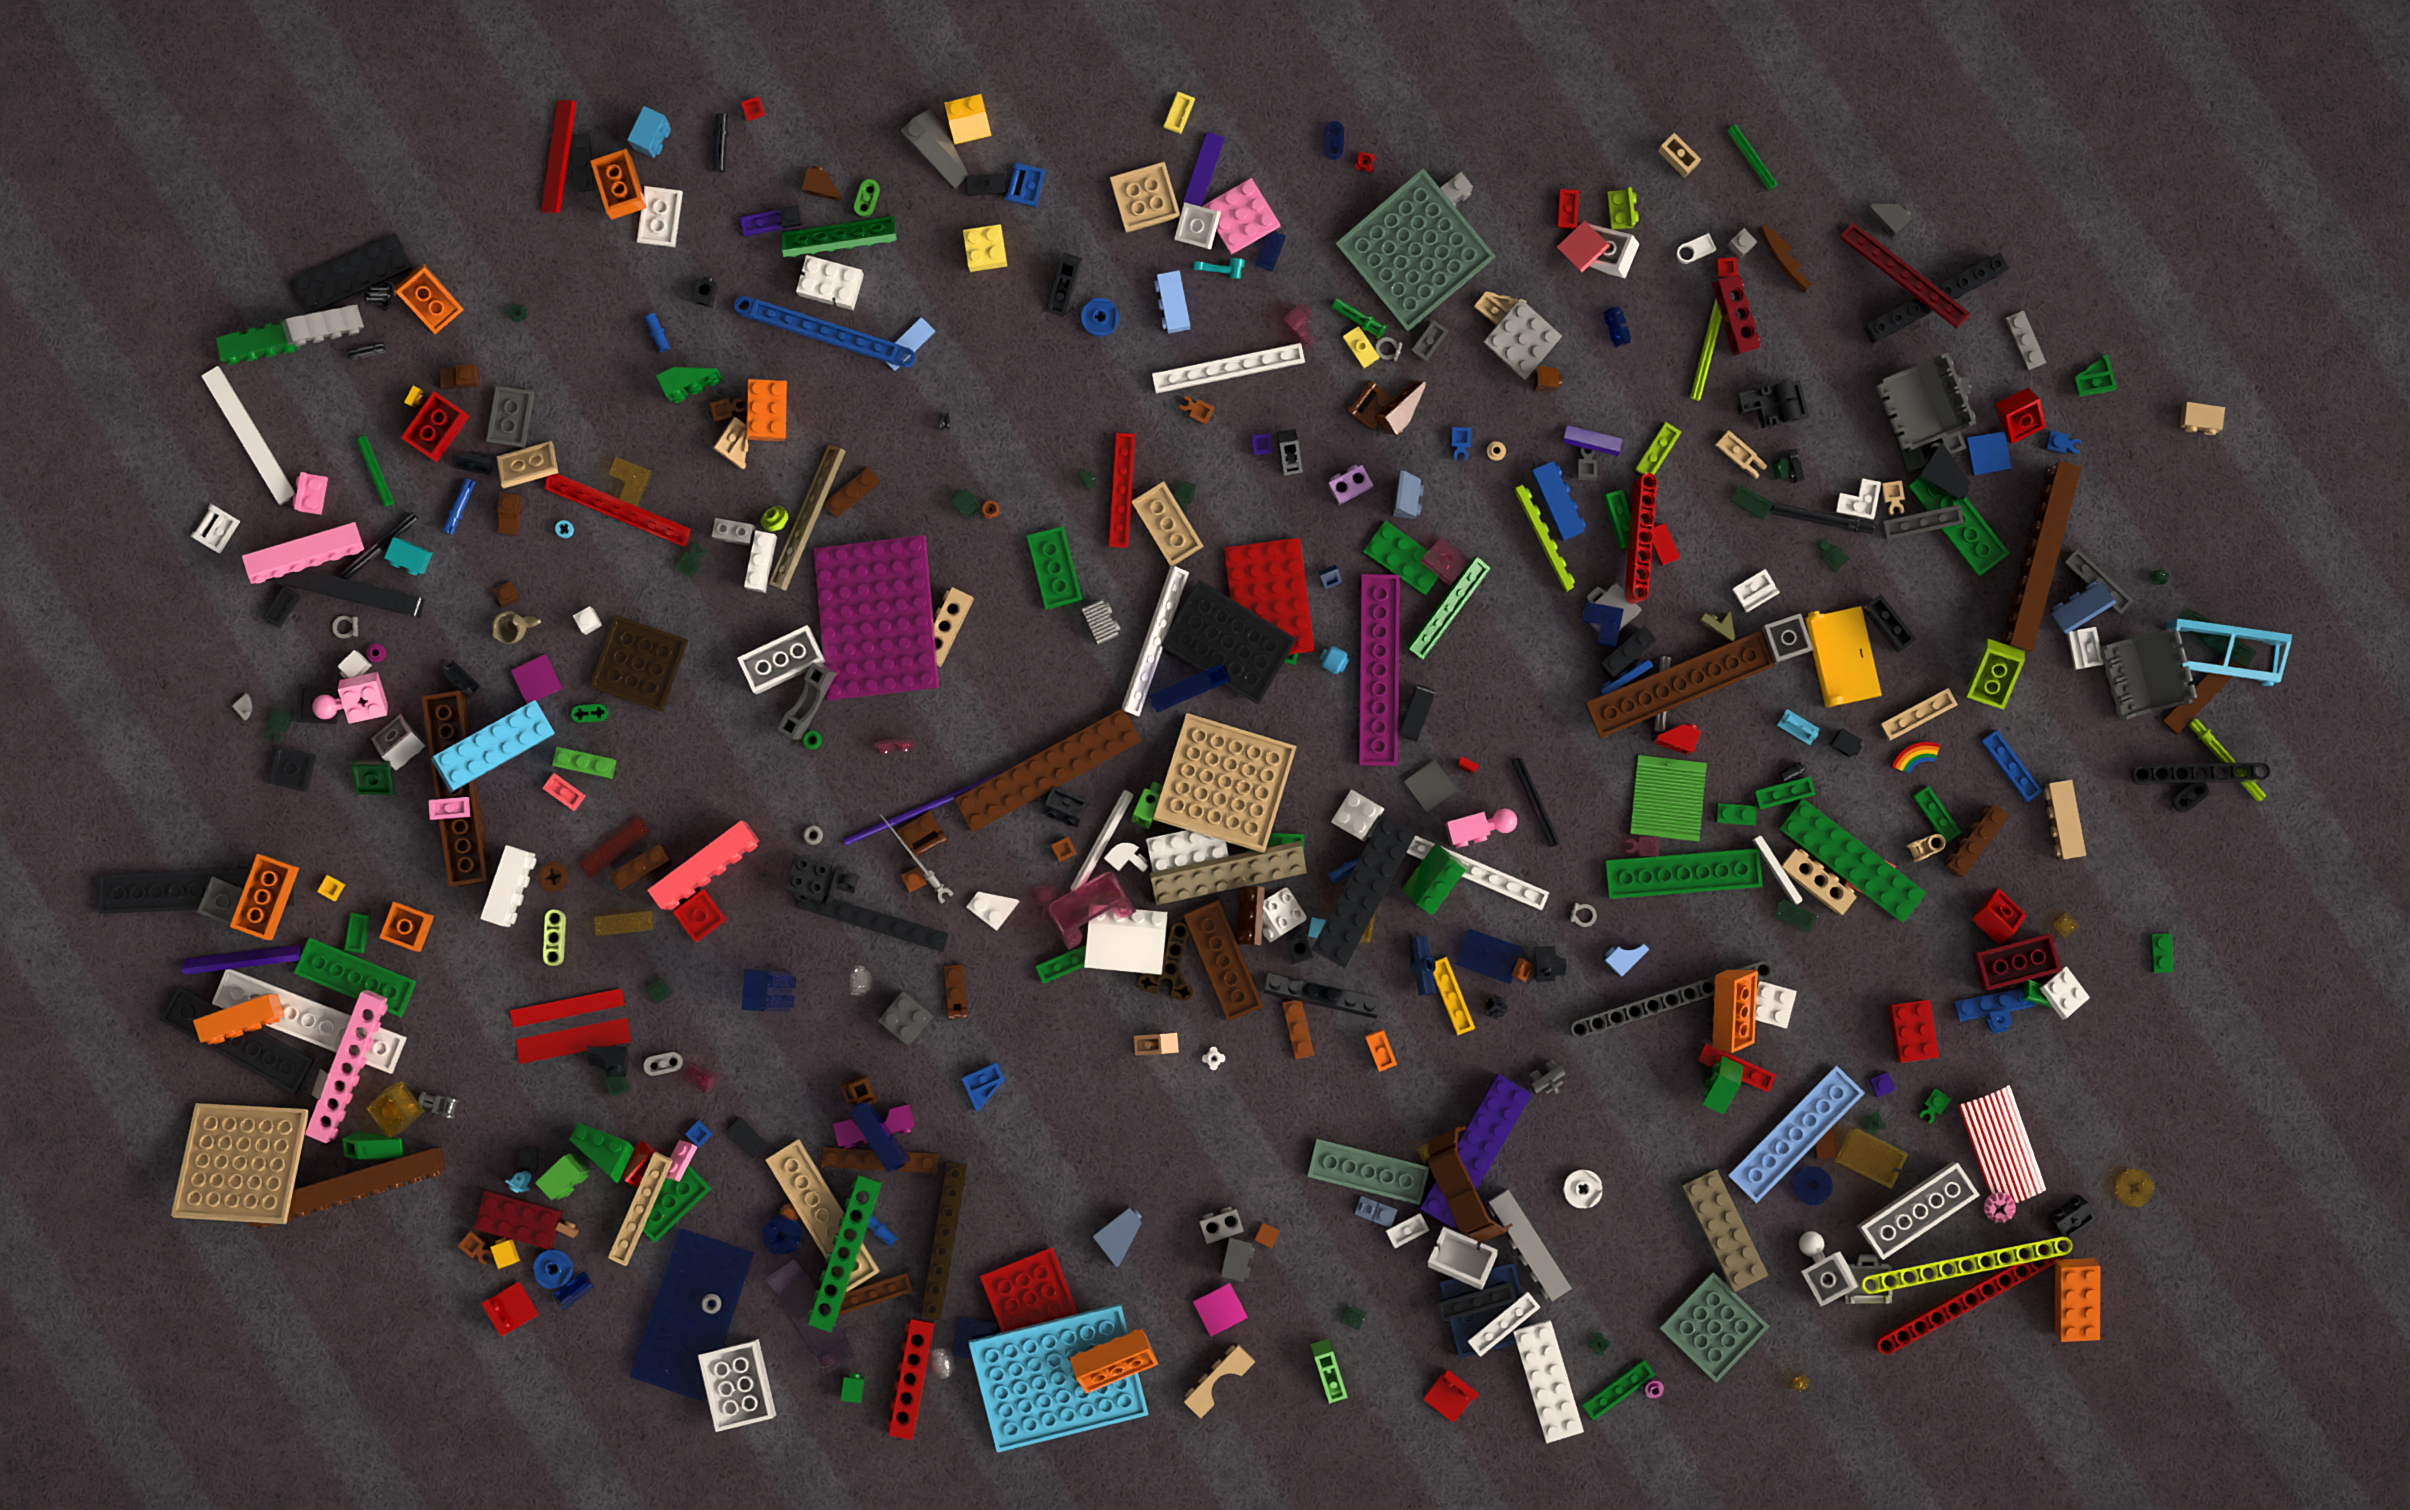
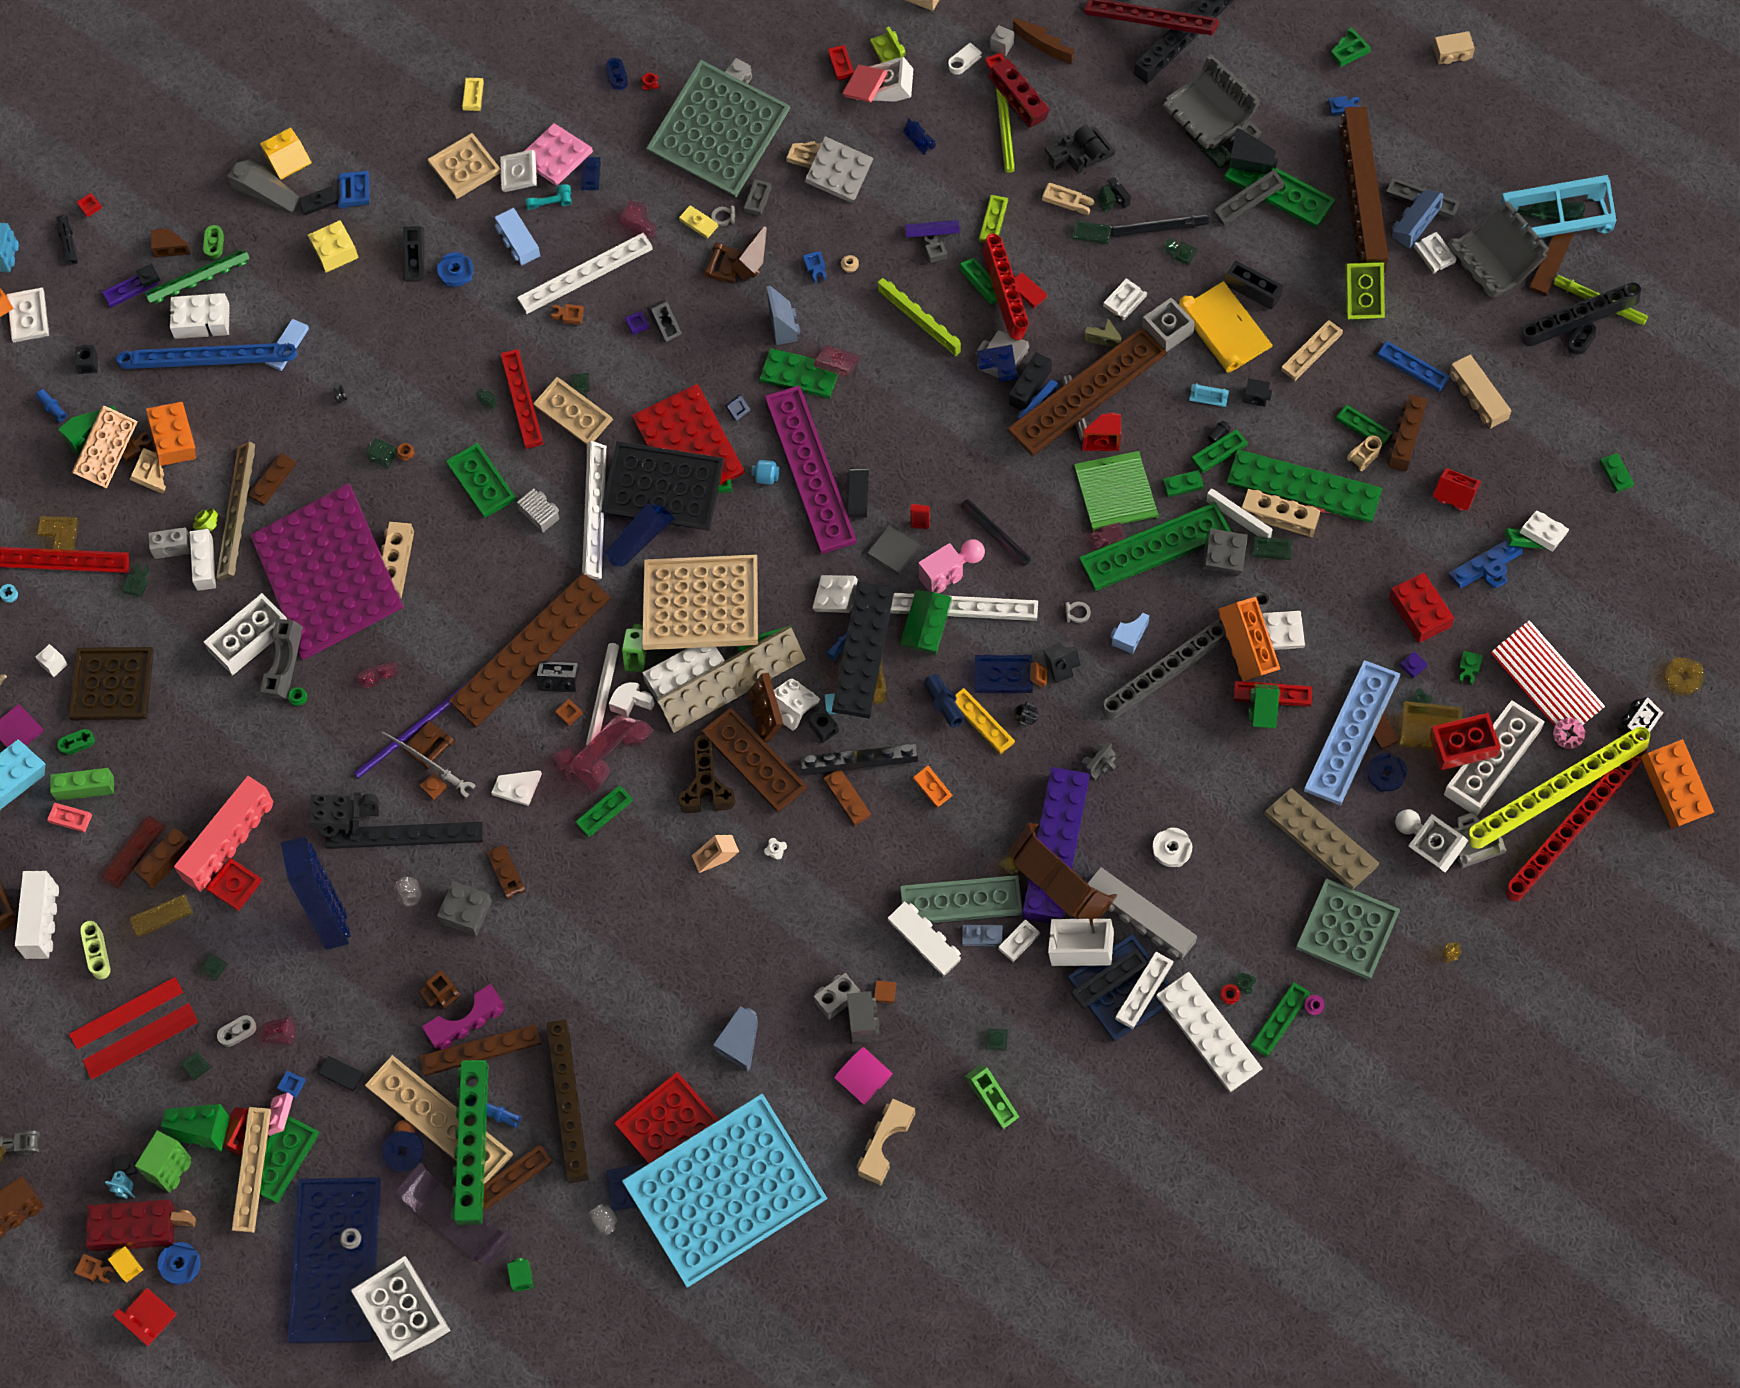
camera: 15 degrees left, 20 degrees down
(545, 872) = (71, 895): reddish brown gear -> none
(573, 1291) = (203, 1281): clear blue plate -> none
(611, 1059) = (180, 1043): black arch -> none
(696, 406) = (104, 446): none -> light nougat tile
(808, 830) = (323, 773): light grey plate -> none
(879, 1137) = (472, 1018): clear blue slope -> none
(925, 1330) = (587, 1296): red brick -> none
(983, 1083) = (559, 945): blue wing -> none
(1113, 1360) = (773, 1149): orange slope -> none
(1127, 942) = (653, 766): white slope -> none
(1204, 169) = (510, 127): dark purple tile -> none
(1320, 1201) = (924, 938): none -> white brick
(1339, 306) = (696, 199): green pin -> none
(1353, 488) = (730, 331): lavender brick -> none
(1448, 607) = (854, 398): plate -> none
(1450, 1395) = (1119, 1076): red bracket -> none
(1547, 379) = (872, 191): reddish brown slope -> none
(1557, 501) = (920, 284): blue brick -> none
(1581, 1356) = (1227, 988): none -> red plate
(1746, 908) = (1224, 552): none -> dark grey brick
(1862, 506) = (1190, 203): white plate -> none
(1894, 494) = (1214, 187): tan plate -> none
(1894, 1195) = (1464, 741): none -> red brick
(1914, 755) = (1323, 384): tile -> none
(1988, 453) = (1283, 132): blue tile -> none
(2016, 962) = (1488, 518): dark red brick -> none
(2020, 415) = (1298, 93): red slope -> none
(2025, 340) = (1277, 40): light grey plate -> none
(2065, 925) = (1519, 478): clear yellow plate -> none
(2159, 577) = (1474, 178): clear green plate -> none

